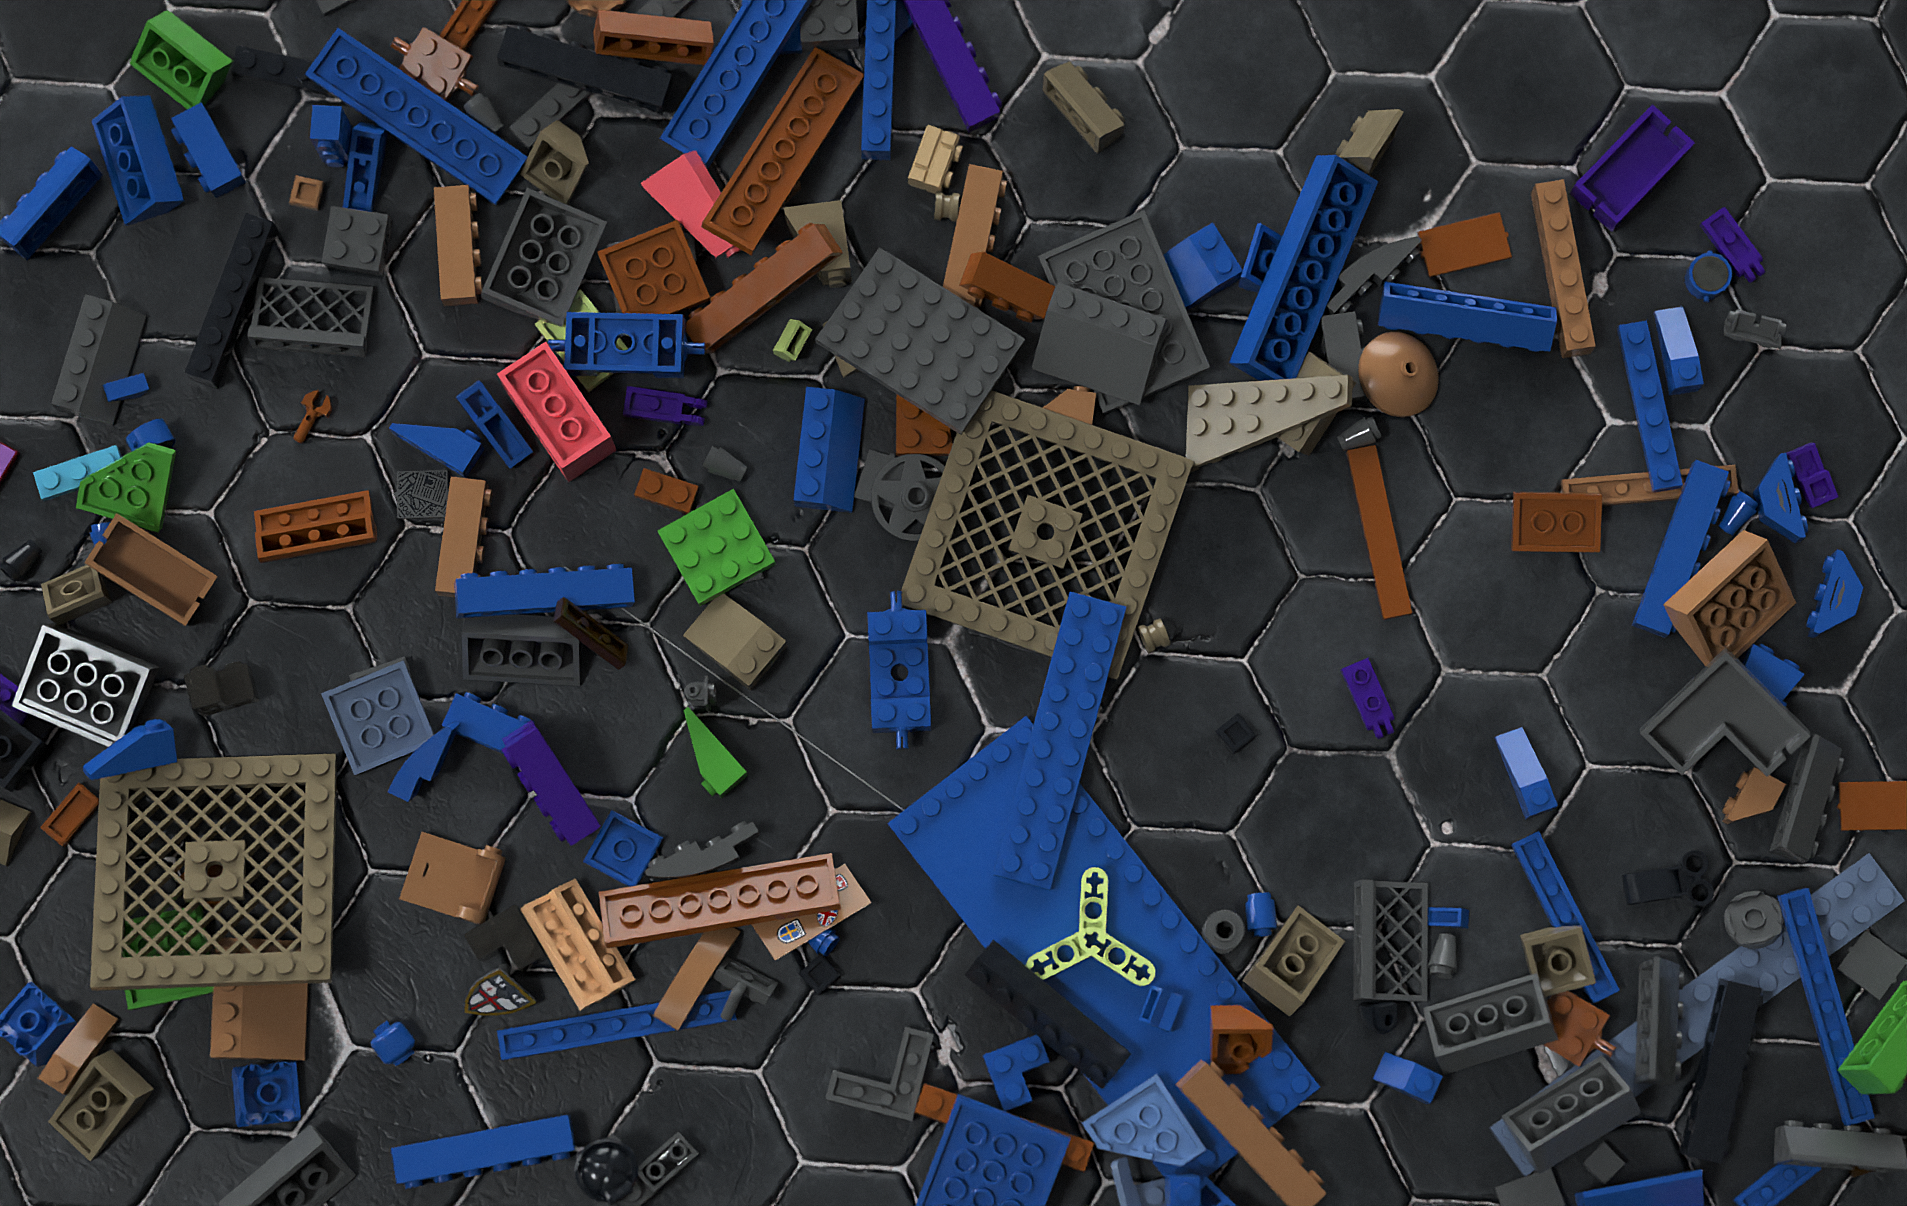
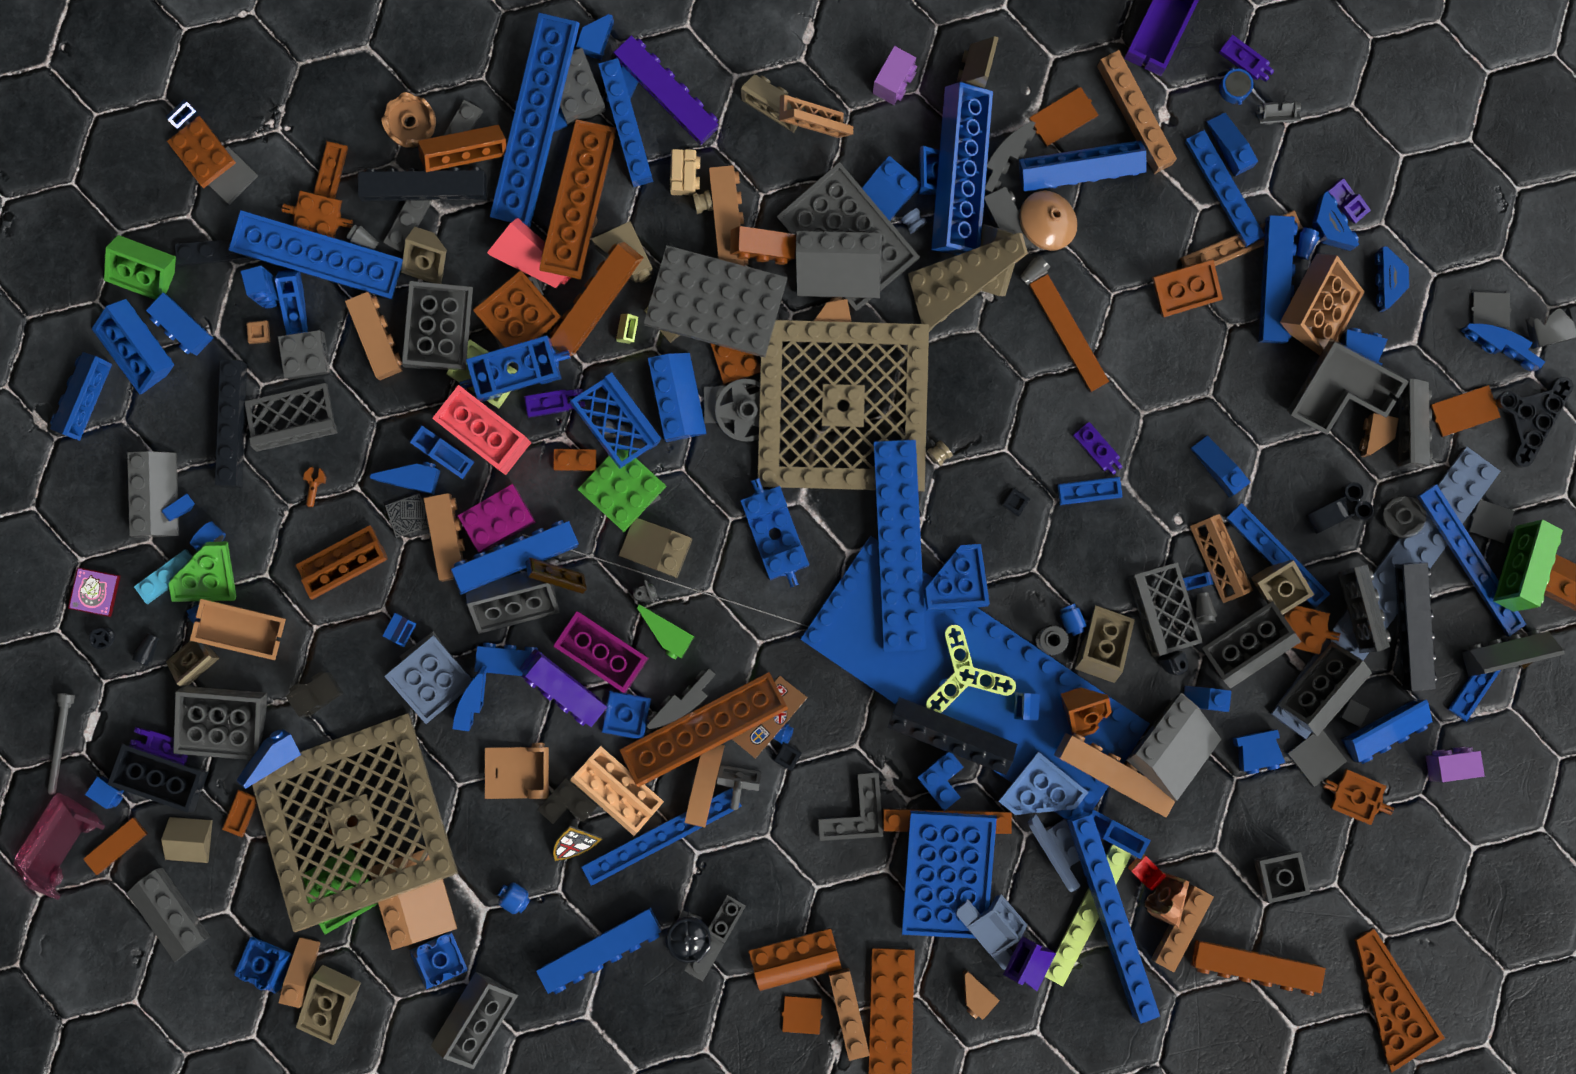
camera: 20 degrees left, 5 degrees up
(361, 640) = (399, 629): none -> blue piece
(538, 535) = (496, 519): none -> magenta brick
(617, 754) = (601, 652): none -> magenta brick
(760, 455) = (631, 415): none -> blue fence
(1122, 143) = (810, 120): none -> medium nougat fence
(1124, 814) = (959, 582): none -> blue plate
(1219, 318) = (914, 220): none -> sand blue wheel
(1254, 120) = (894, 76): none -> medium lavender brick
(1339, 750) = (1089, 491): none -> blue tile
(1344, 1128) = (1175, 747): none -> dark grey slope
(1456, 1171) = (1259, 751): none -> blue hips
(1494, 895) = (1227, 556): none -> medium nougat fence

